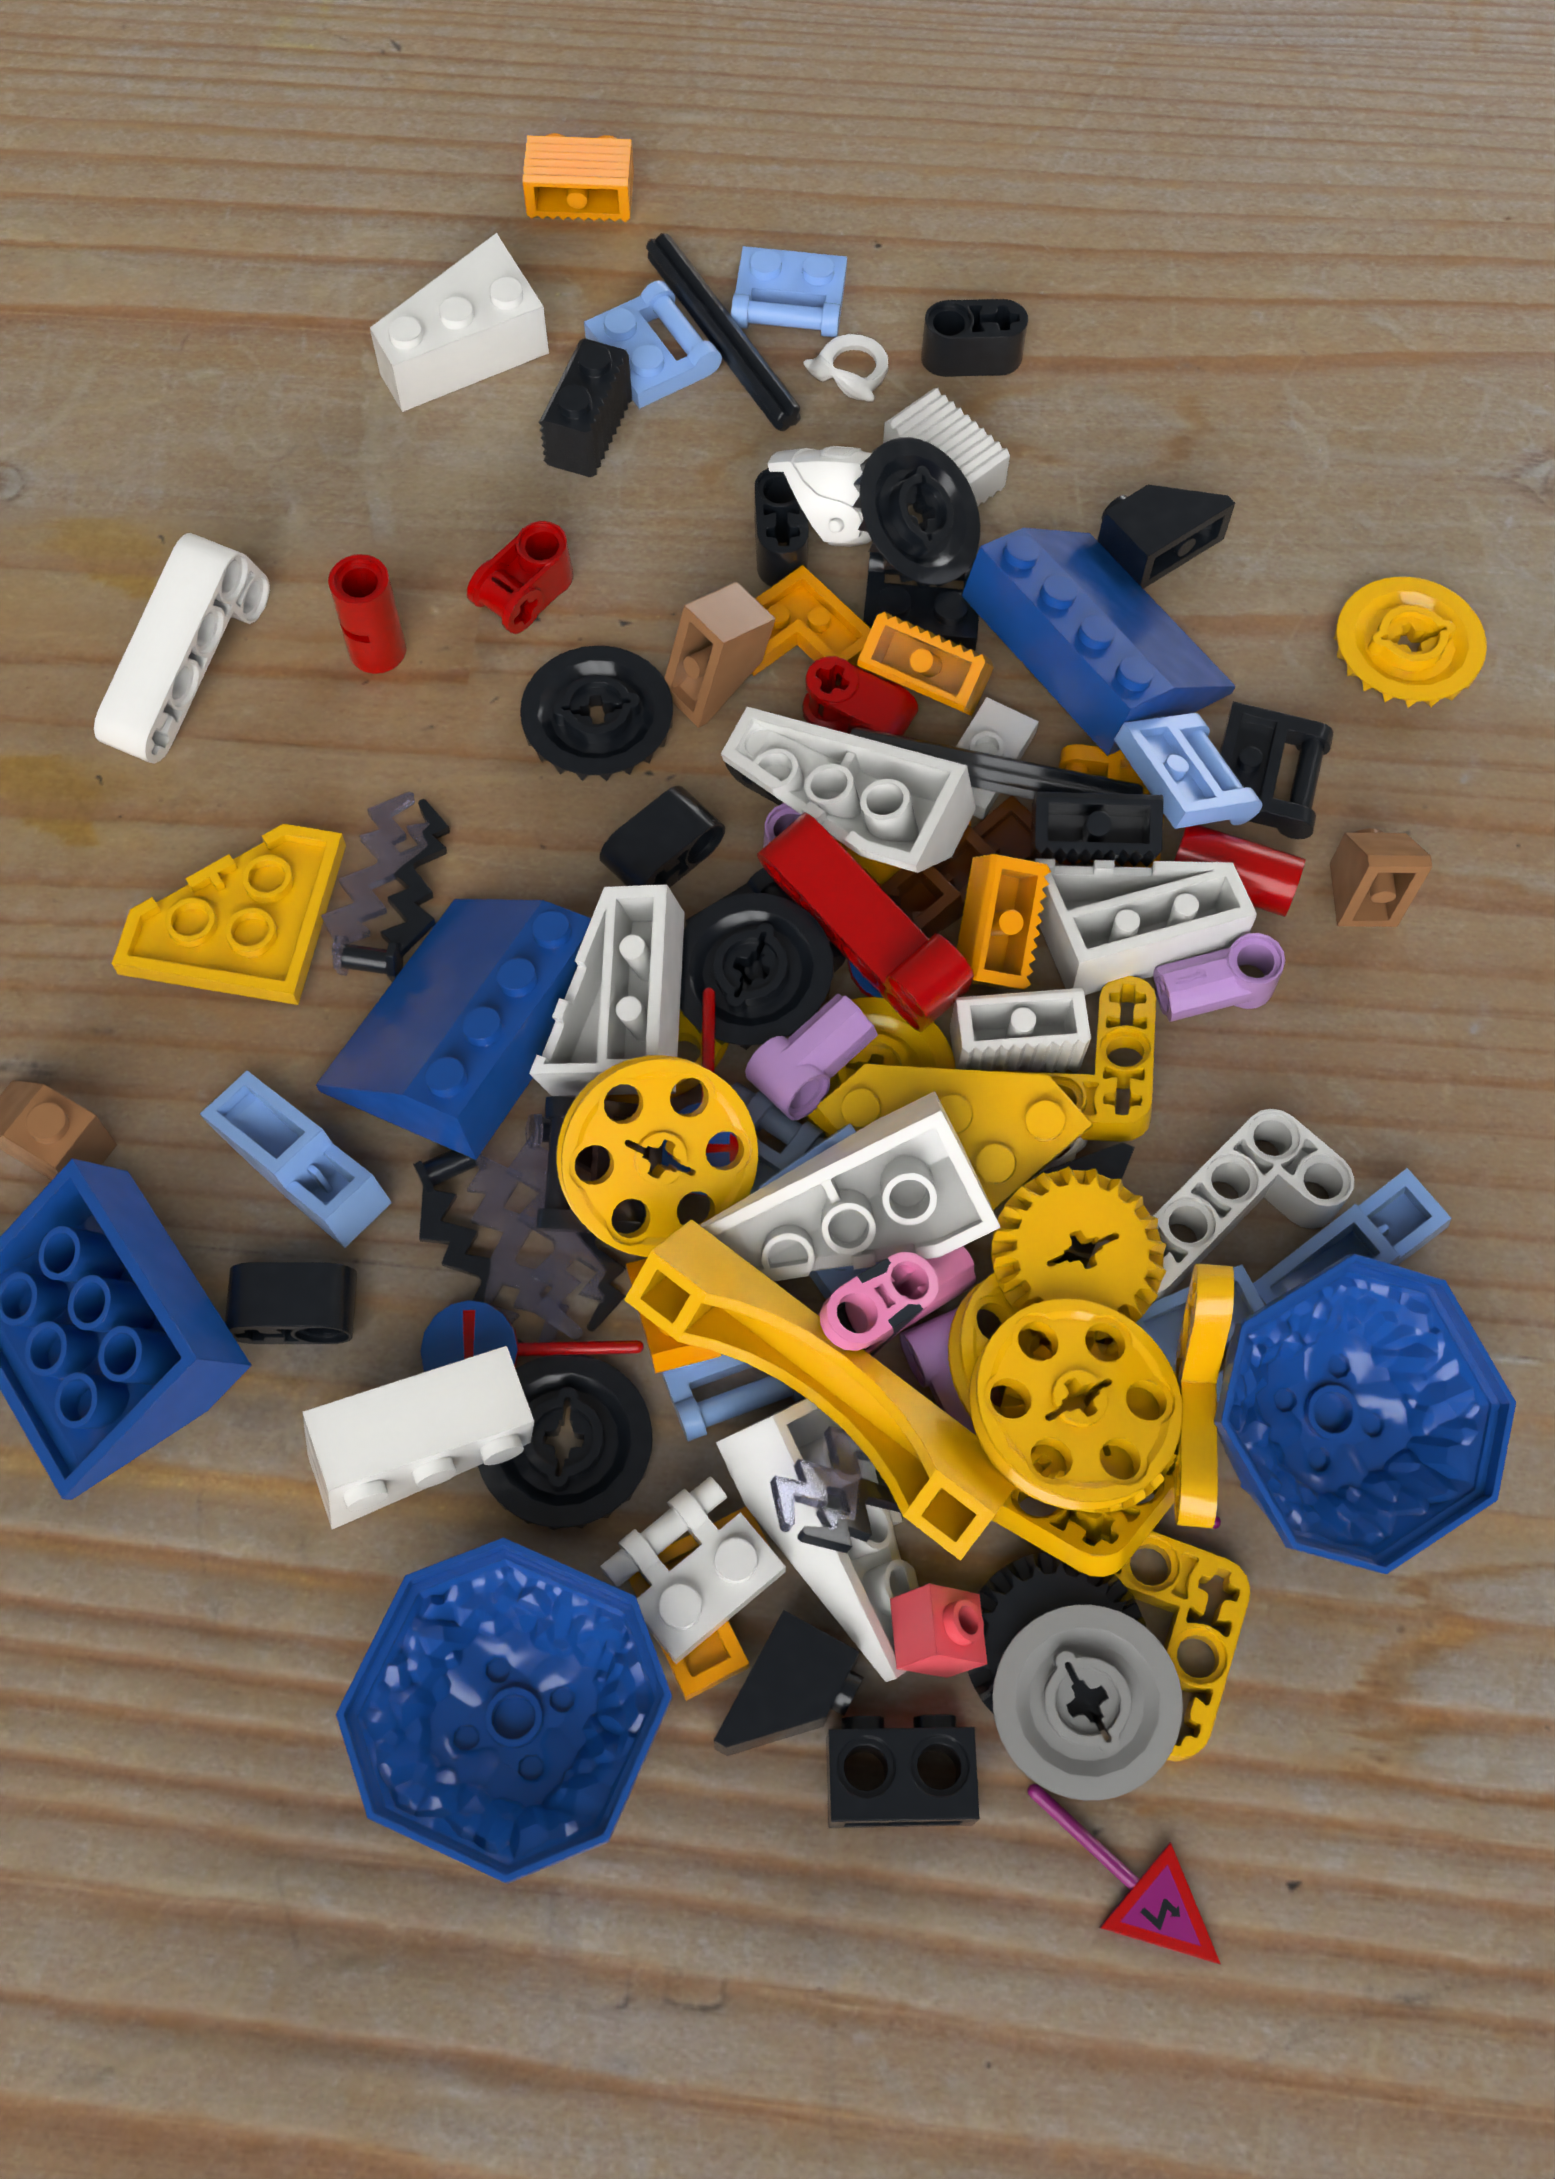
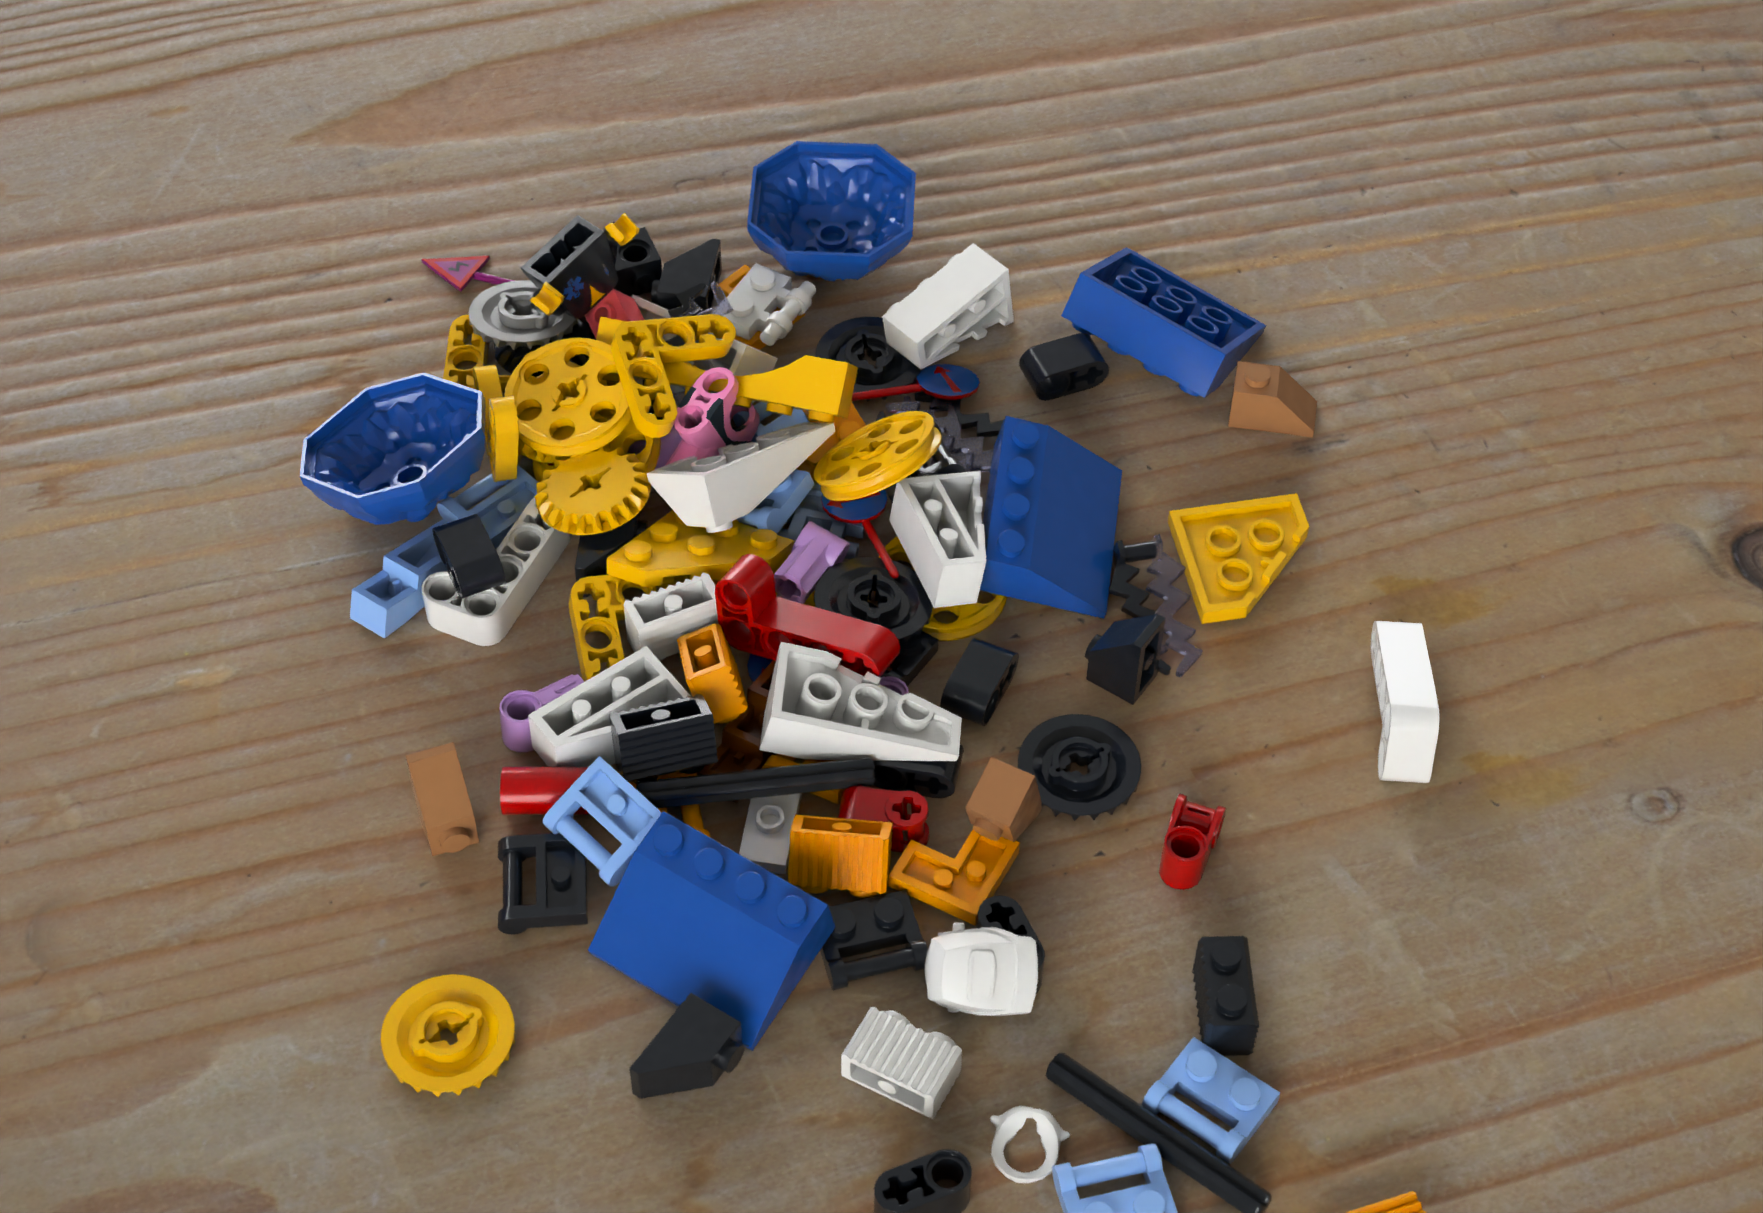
camera: 160 degrees right, 15 degrees down
(297, 1158) = (1115, 434): light blue slope -> none
(367, 613) = (1279, 744): red pin -> none
(460, 328) = (1370, 1038): white wedge -> none
(472, 789) = (1126, 656): none -> black slope
(920, 475) = (866, 957): black gear -> none
(933, 1398) = (654, 352): none -> yellow beam
(1009, 1677) = (577, 266): none -> black torso
(1286, 1184) = (469, 556): none -> black beam

